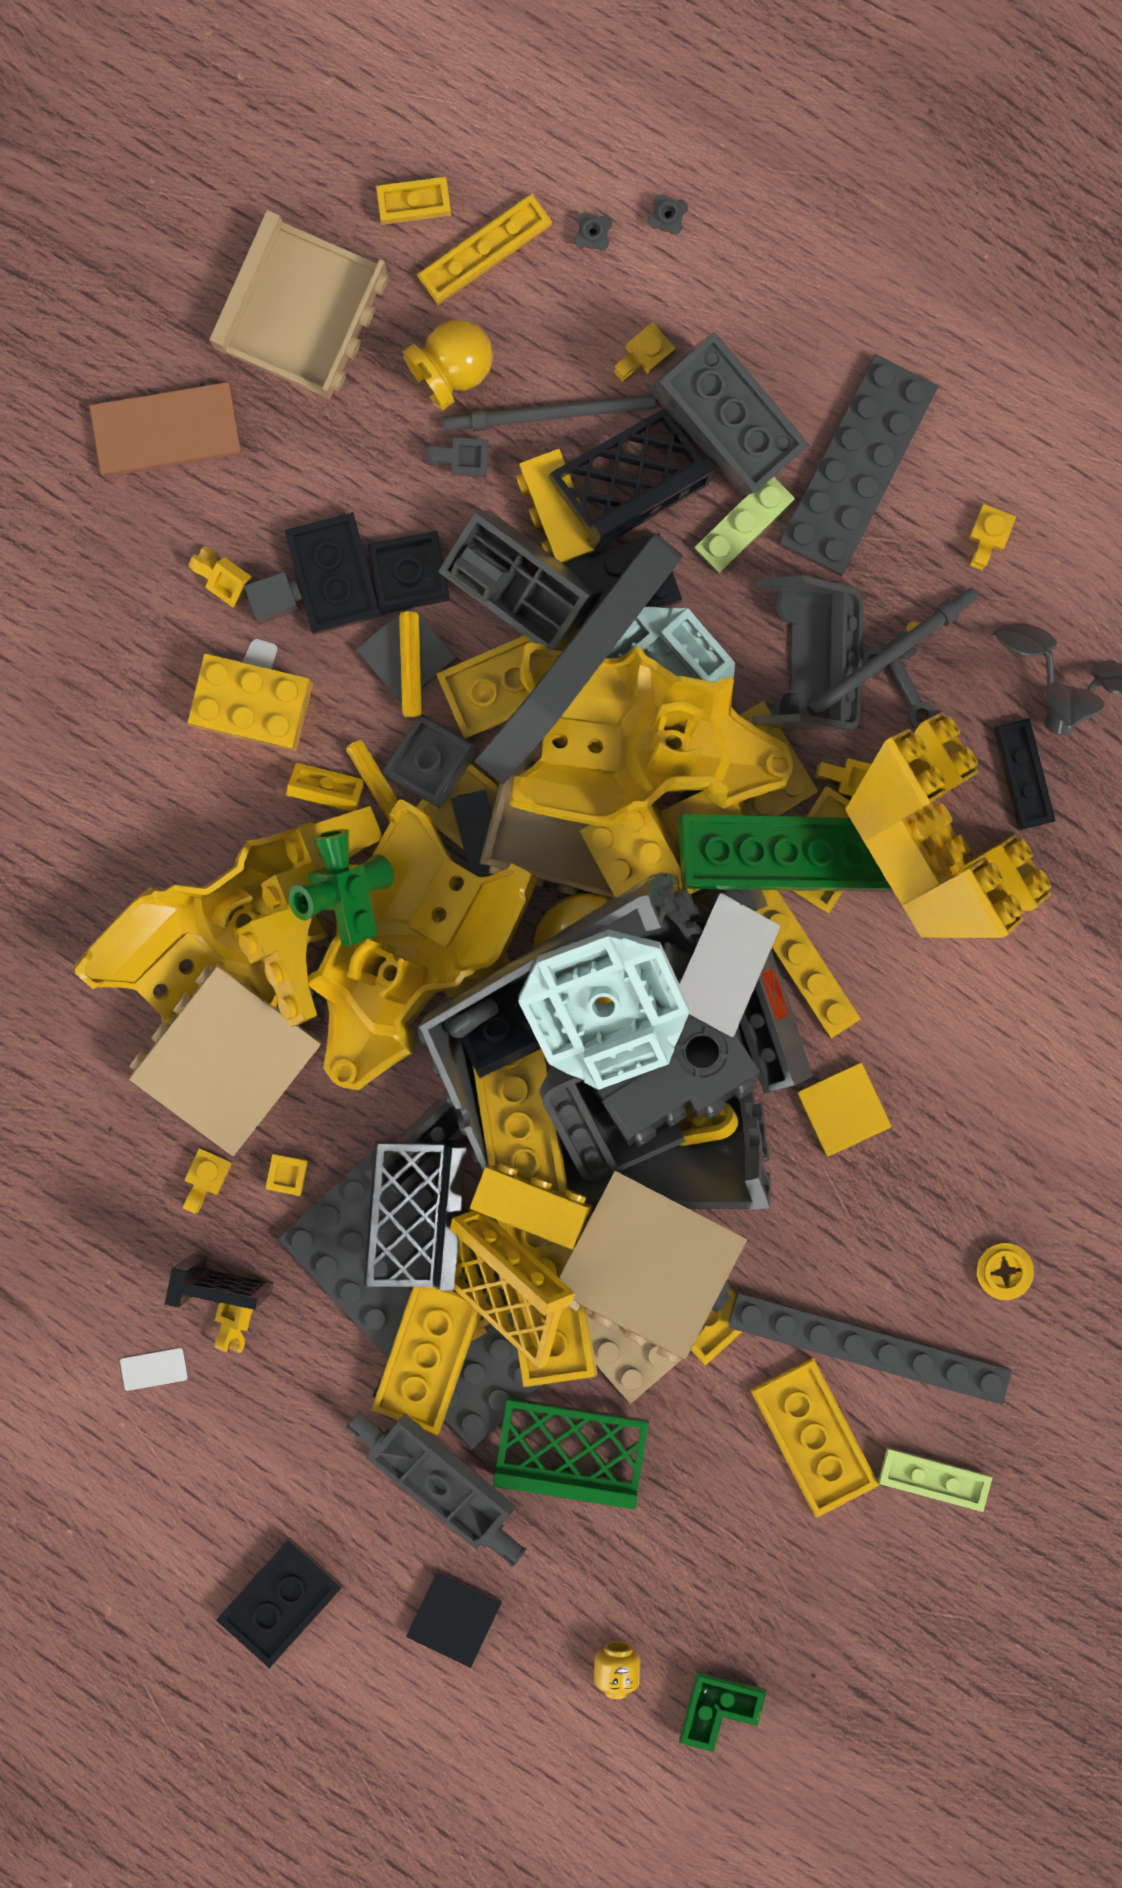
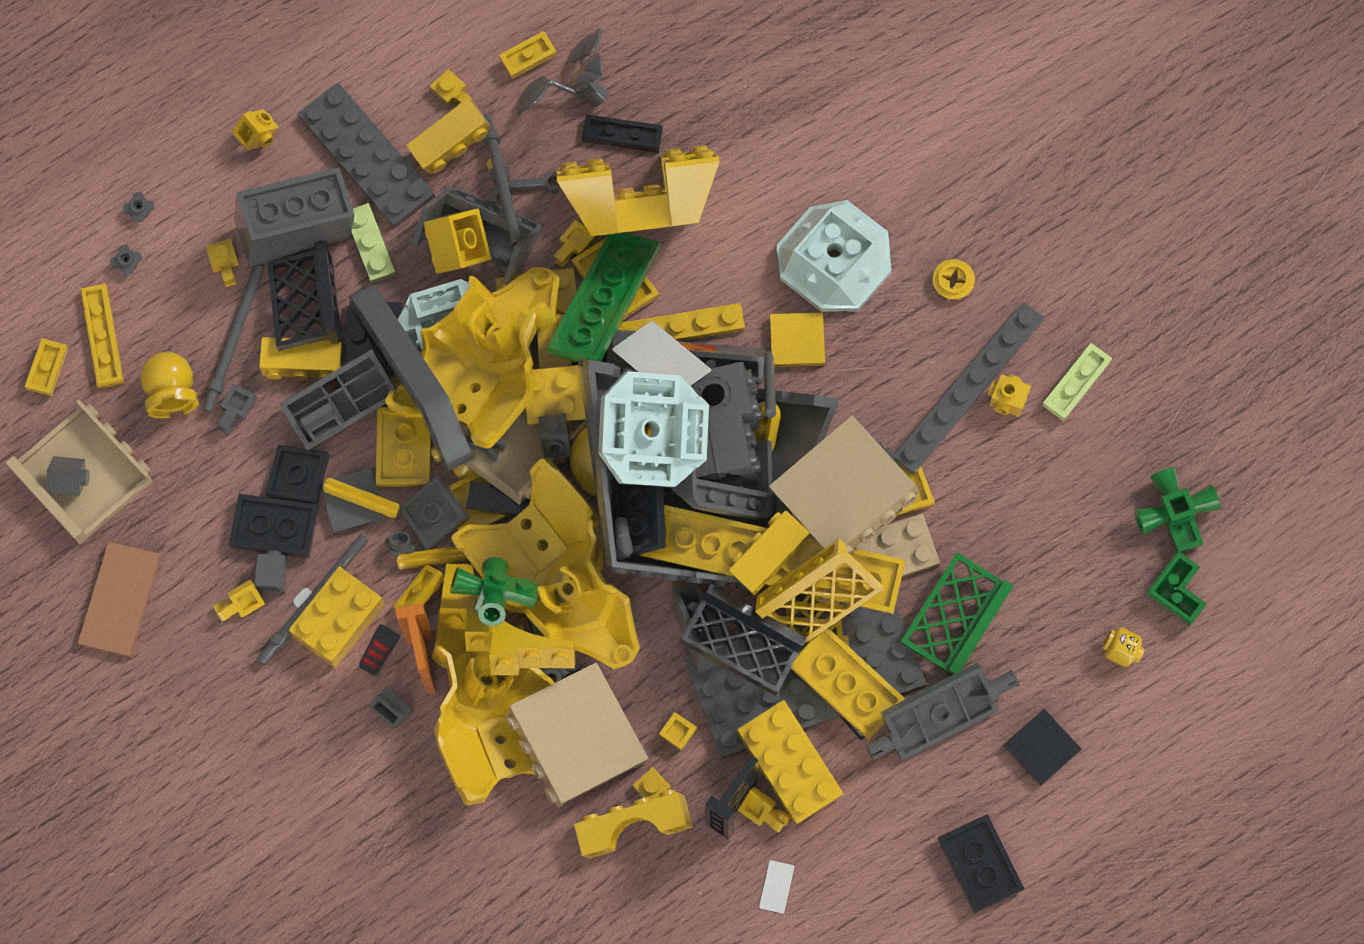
camera: 65 degrees left, 15 degrees down
(169, 818) = (391, 708): none -> dark grey piece
(171, 1208) = (600, 834): none -> yellow arch
(197, 645) = (279, 639): none -> dark grey bar
(238, 769) = (378, 649): none -> black sticker
(242, 824) = (416, 631): none -> orange fence
(283, 293) = (67, 476): none -> dark grey brick
(299, 1327) = (789, 762): none -> yellow brick
(382, 733) = (399, 543): none -> dark grey plate
(578, 871) = (554, 435): none -> dark grey brick
(759, 1107) = (769, 385): none -> dark grey bar
(784, 634) = (457, 241): none -> yellow brick
(814, 1437) = (1015, 451): yellow tile -> none
(817, 1670) = (1177, 510): none -> green brick
(828, 312) = (255, 129): none -> yellow brick
(882, 1416) = (1009, 395): none -> yellow brick
(922, 561) = (449, 137): none -> yellow brick
(933, 1104) = (841, 281): none -> light aqua piece
(1078, 609) = (527, 55): none -> yellow plate

